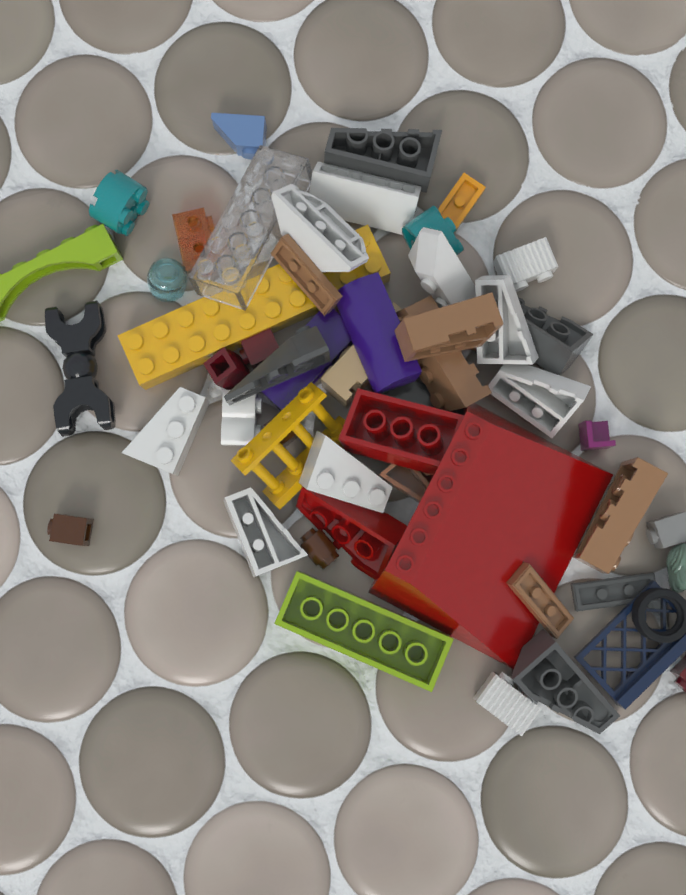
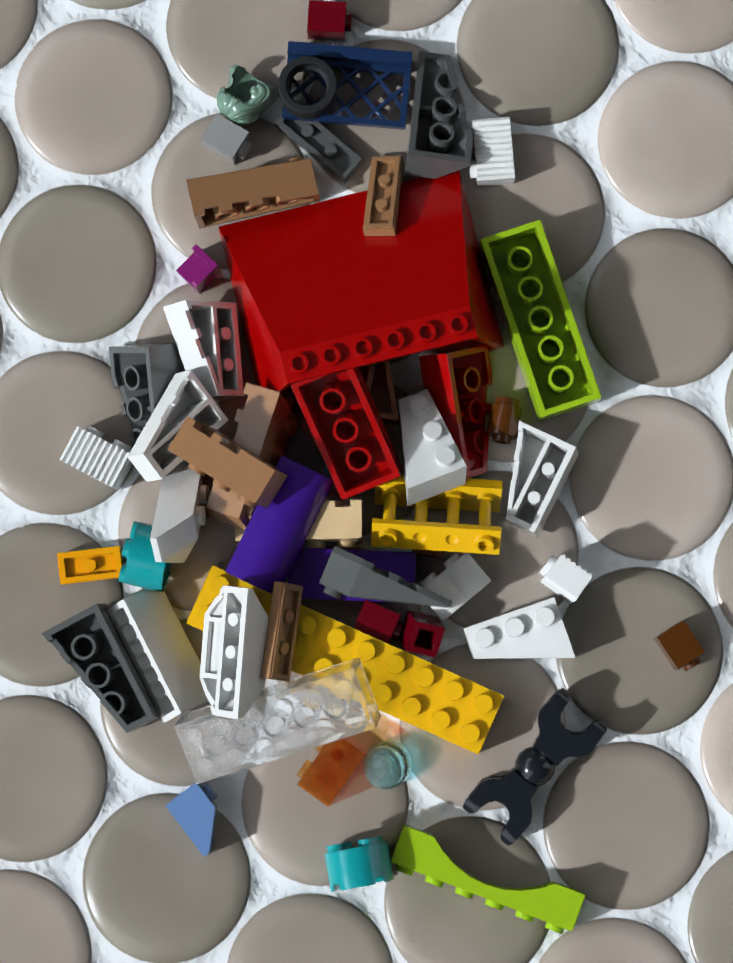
camera: 125 degrees left, 0 degrees up
(178, 492) = (564, 577): none -> white brick

